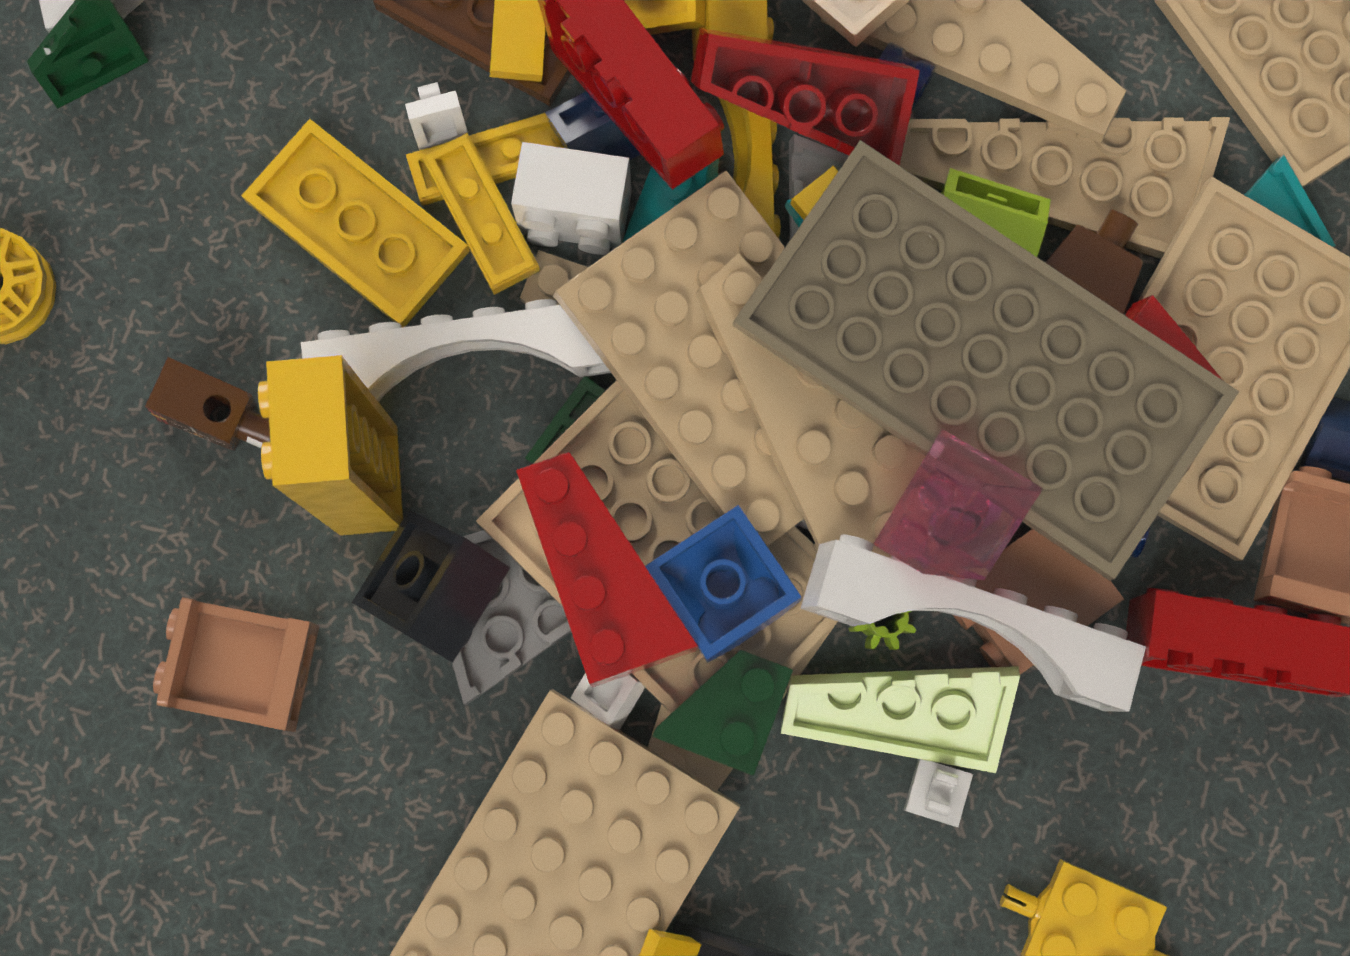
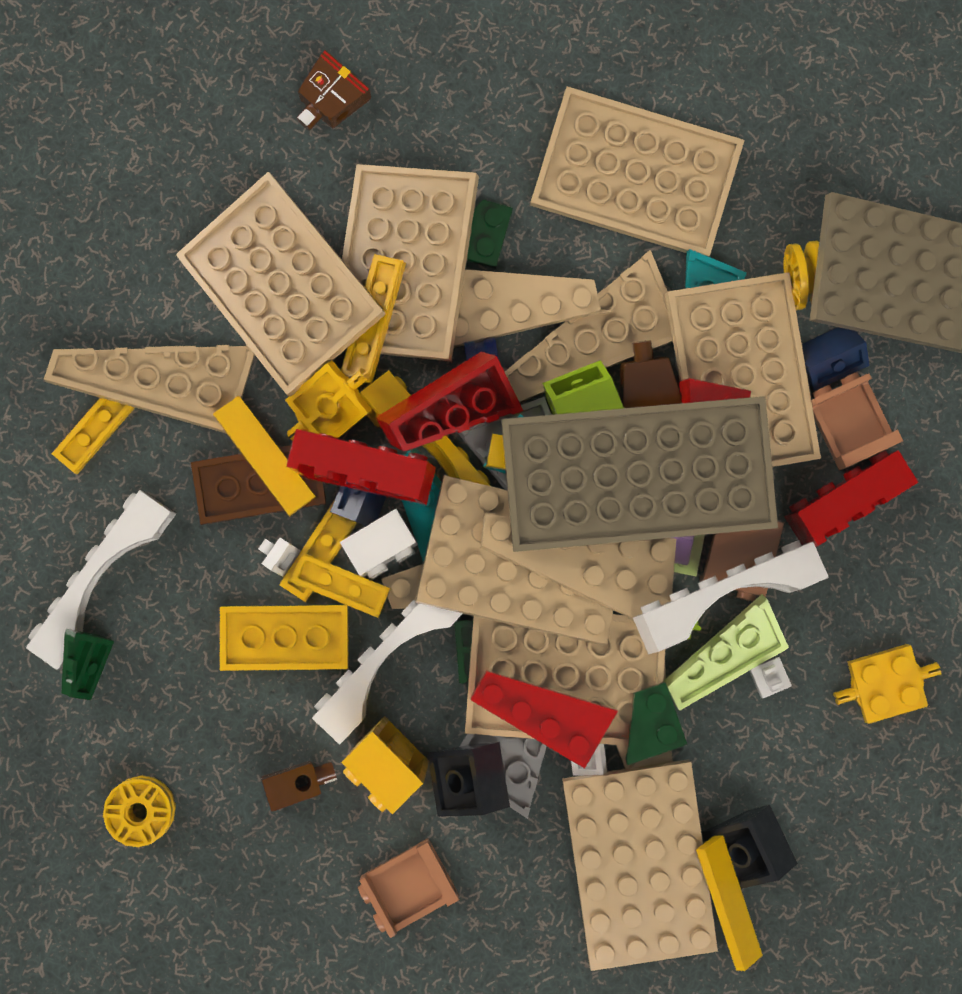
camera: 45 degrees left, 5 degrees up
(724, 584) = (604, 671): blue slope -> none
(957, 512) = (684, 557): clear pink slope -> none

